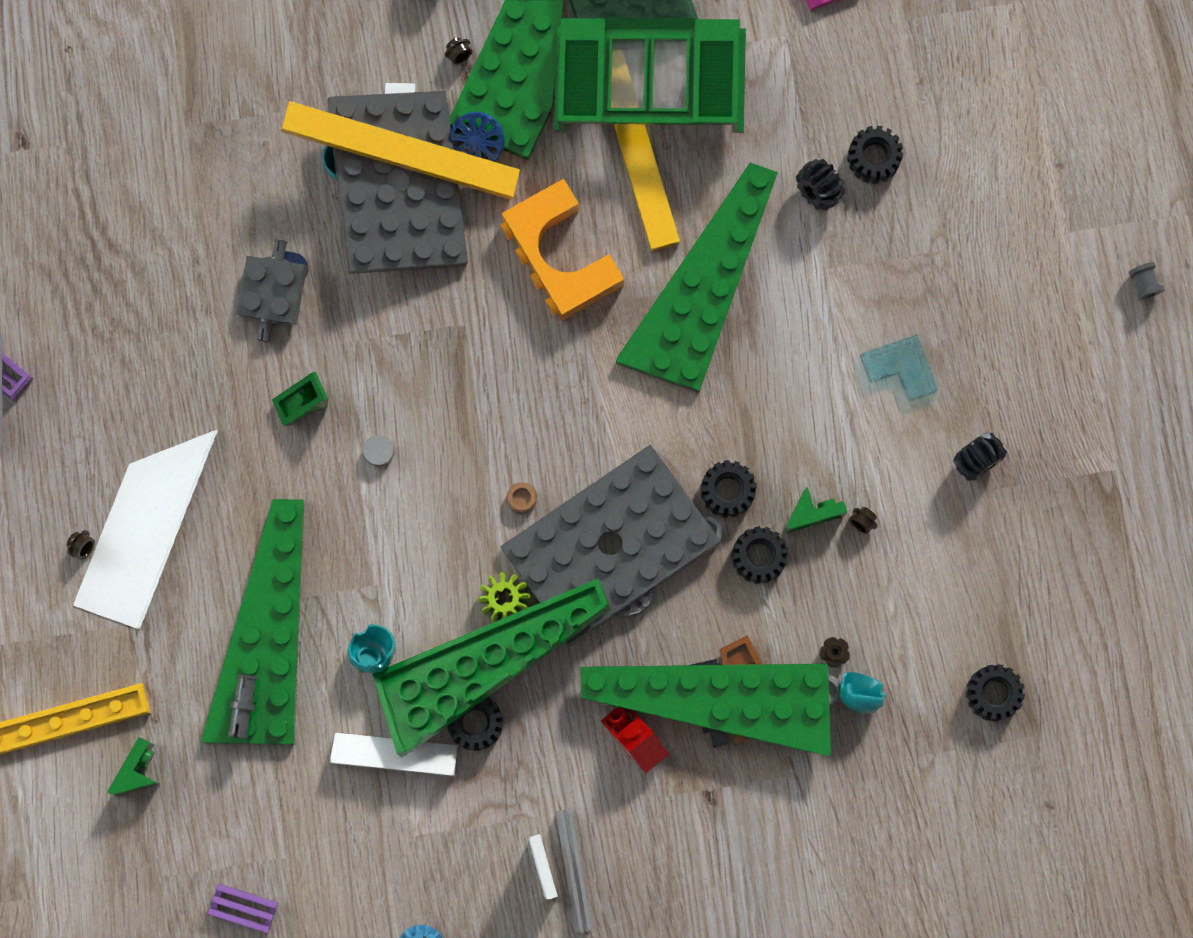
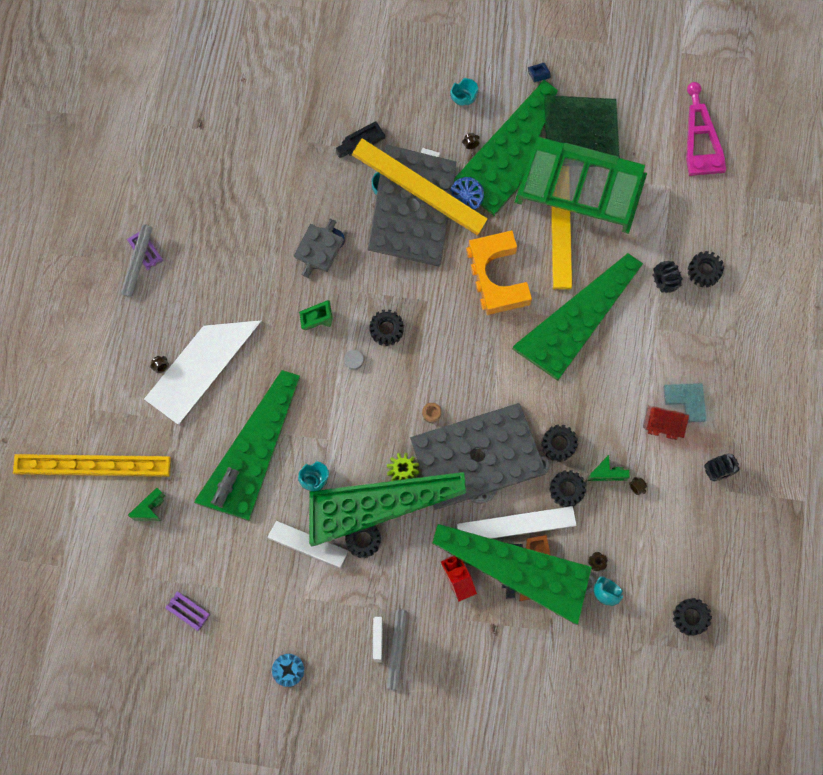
camera: 20 degrees right, 5 degrees down
(294, 87) = (371, 133): none -> black hinge
(414, 368) = (386, 317): none -> black tyre
(704, 628) = (521, 523): none -> white tile
(878, 411) = (666, 422): none -> clear red brick

